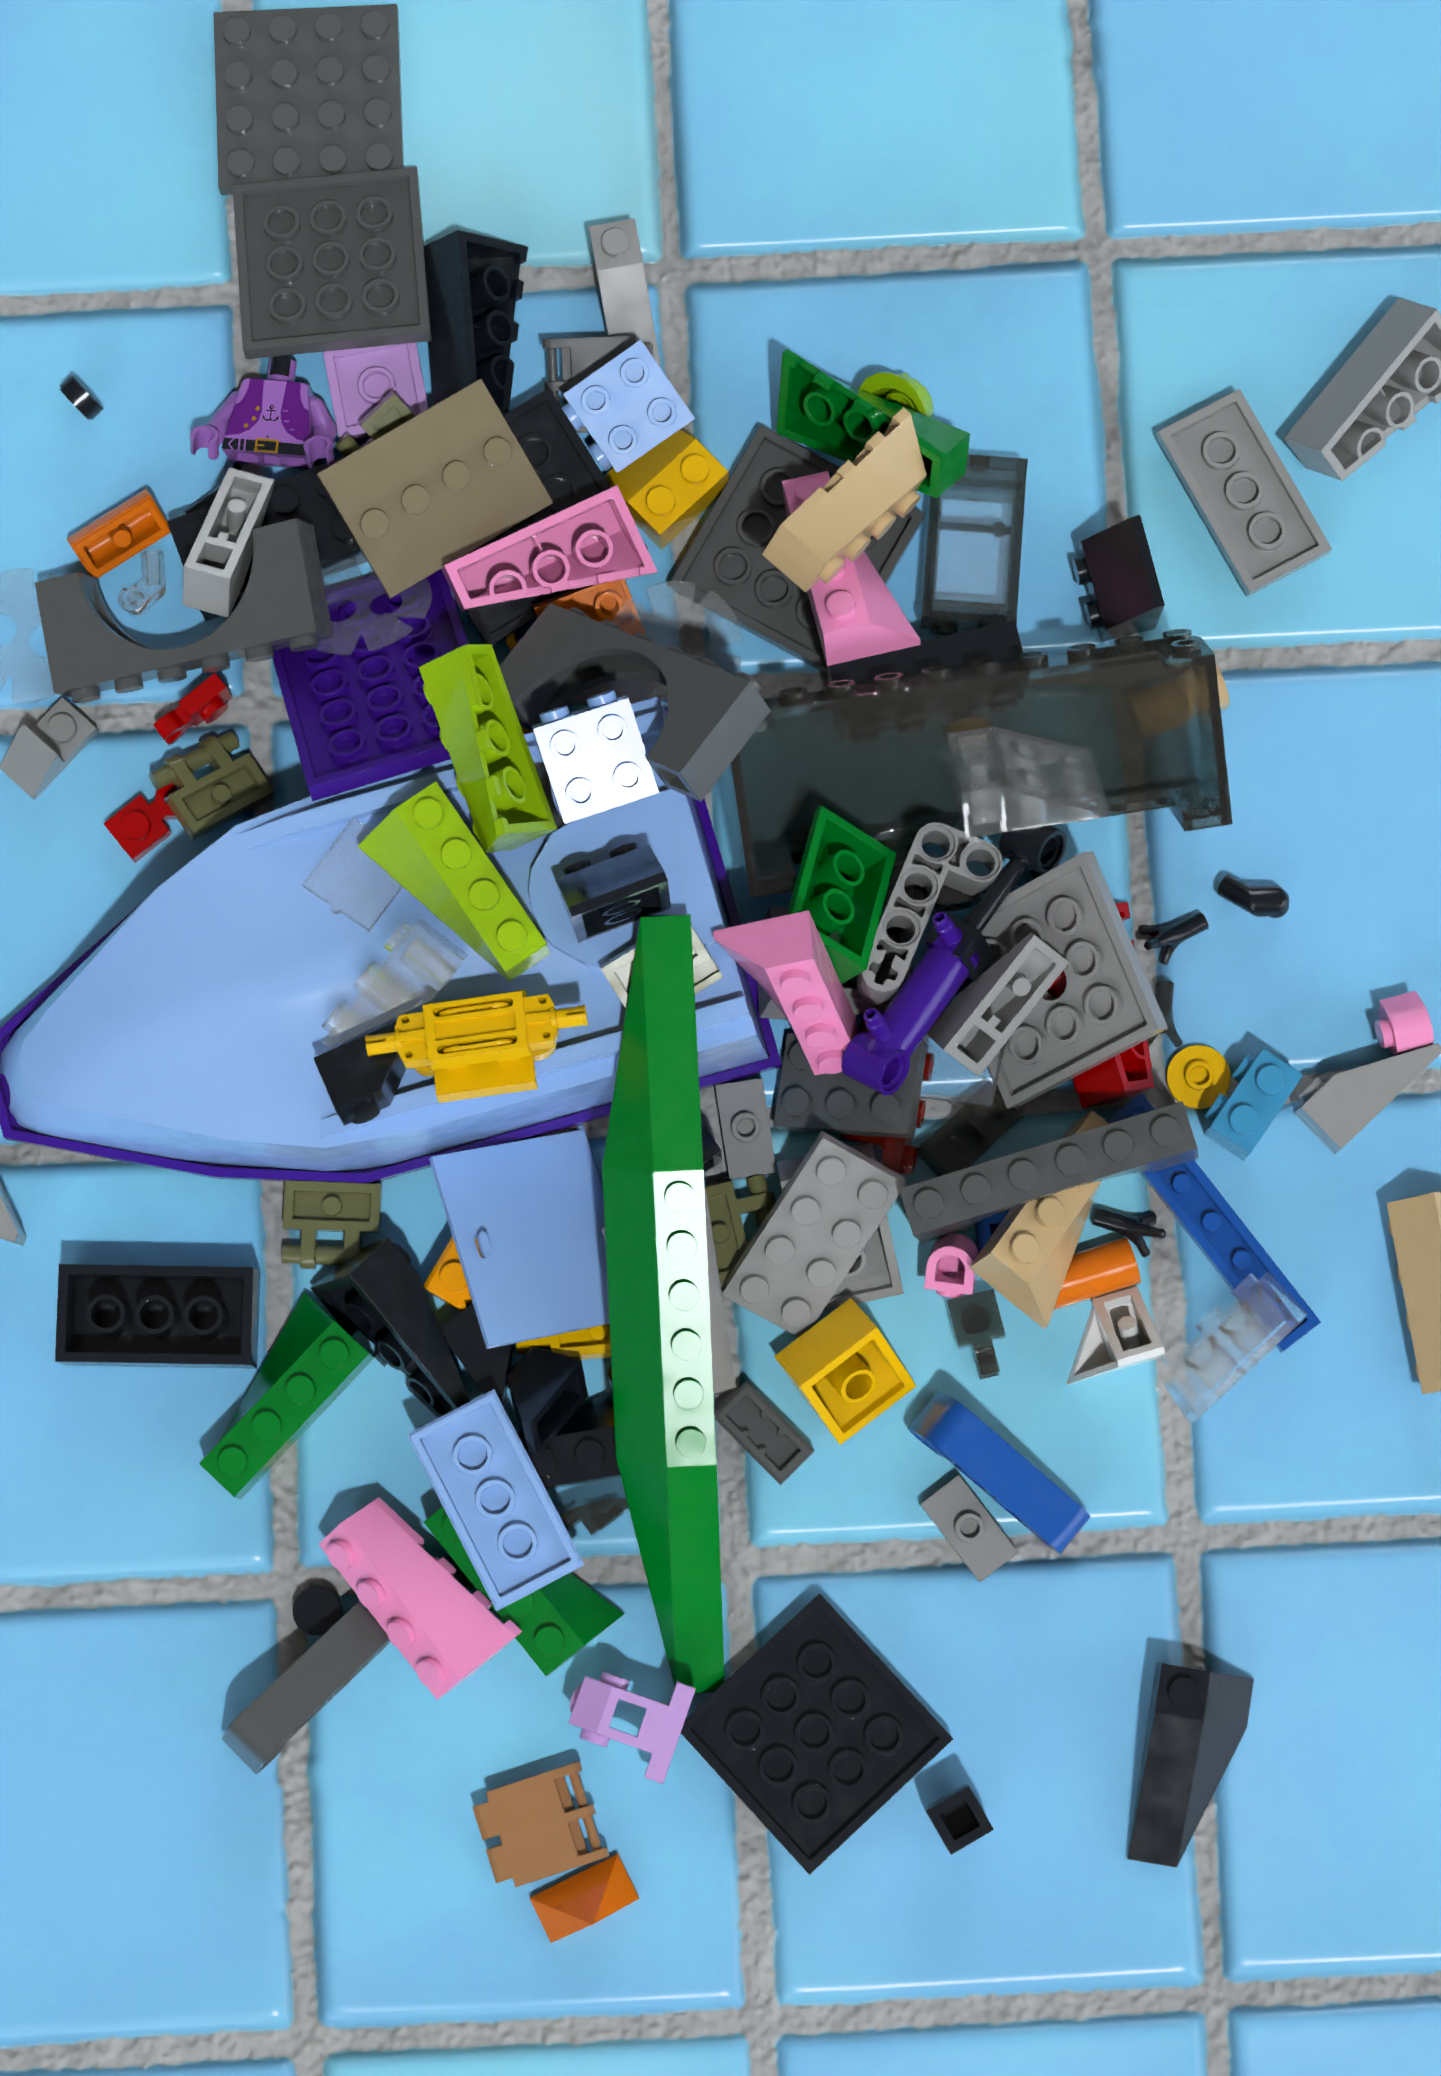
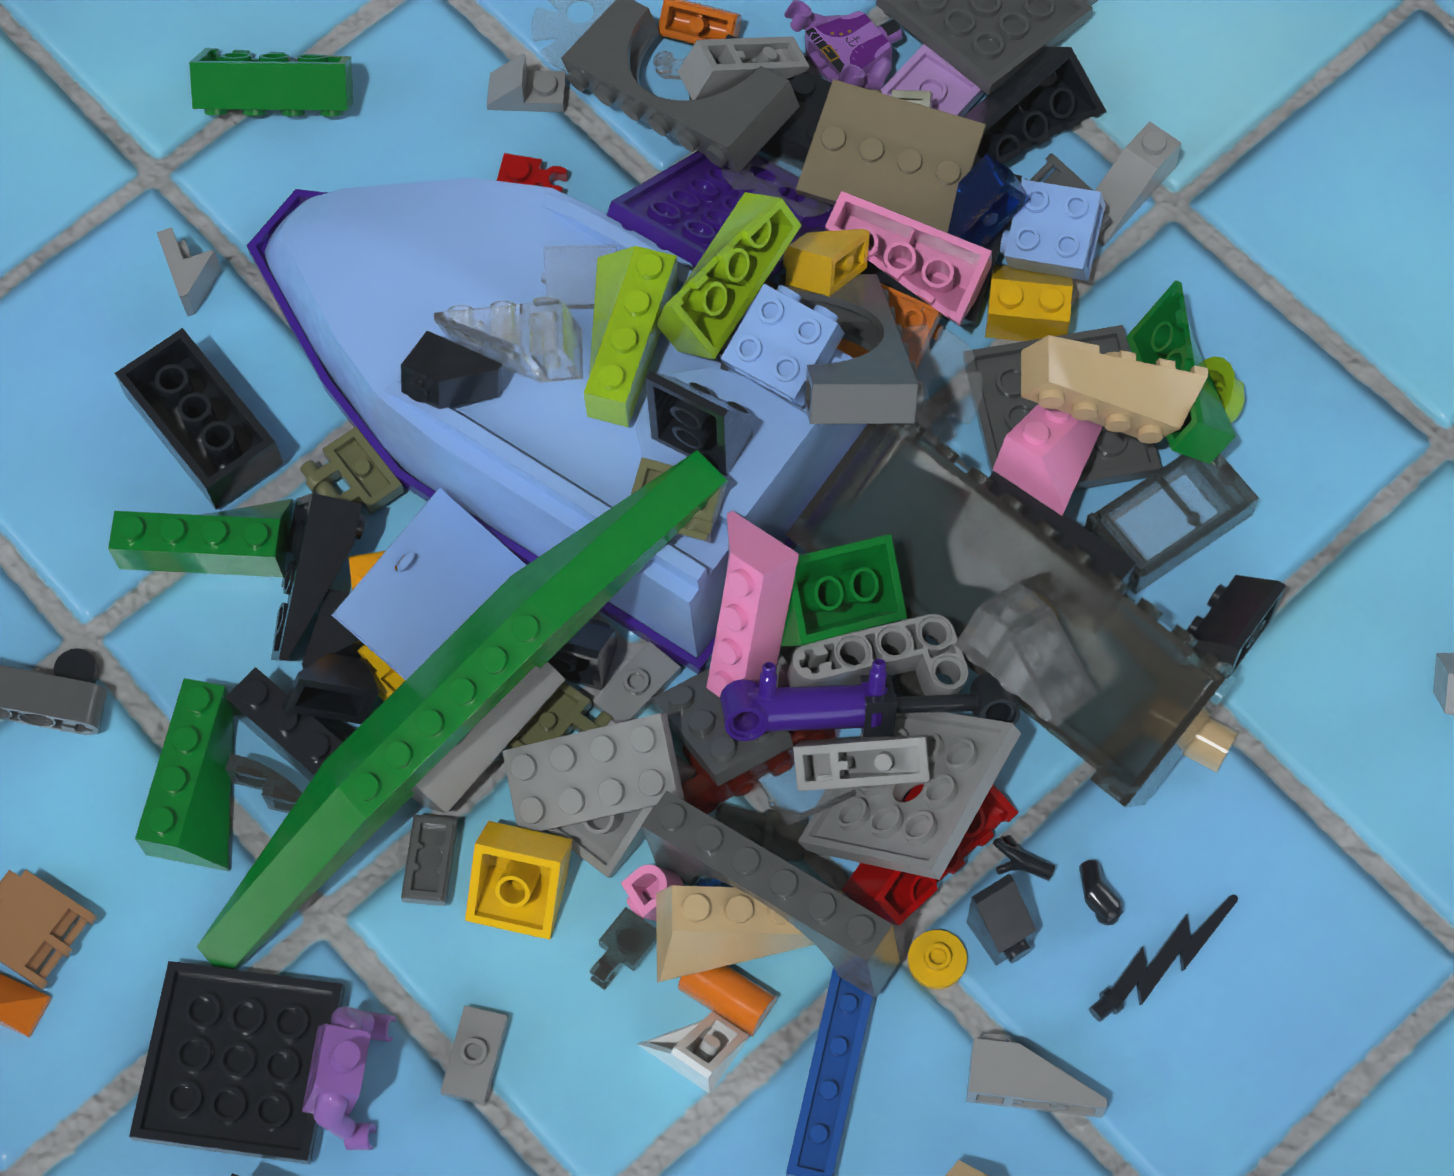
camera: 50 degrees right, 15 degrees down
(202, 704) = (629, 146): red plate -> none
(217, 796) = (580, 189): olive plate -> none
(416, 1598) = (126, 717): bright pink wedge -> none
(479, 1042) = (523, 419): yellow piece -> none
(495, 1500) = (232, 708): light blue tile -> none
(514, 634) = (826, 260): none -> yellow slope
(557, 445) = (986, 201): none -> clear blue slope
(594, 1707) = (157, 941): lavender tile -> none
(904, 1651) = (339, 1070): none -> medium lavender torso
(999, 1470) = (529, 1041): blue beam -> none
(1130, 1227) = (787, 995): black bar -> none
(1164, 995) = (957, 899): clear smoke bar -> none
(1221, 1000) = (1001, 921): none -> black slope
(1229, 1344) = (755, 1126): clear slope -> none
(1243, 492) = (1374, 661): light grey plate -> none
(1253, 1104) = (948, 1005): dark azure brick -> none
(1354, 920) = (1147, 977): none -> black piece
(1403, 1024) = (1101, 1065): bright pink plate -> none

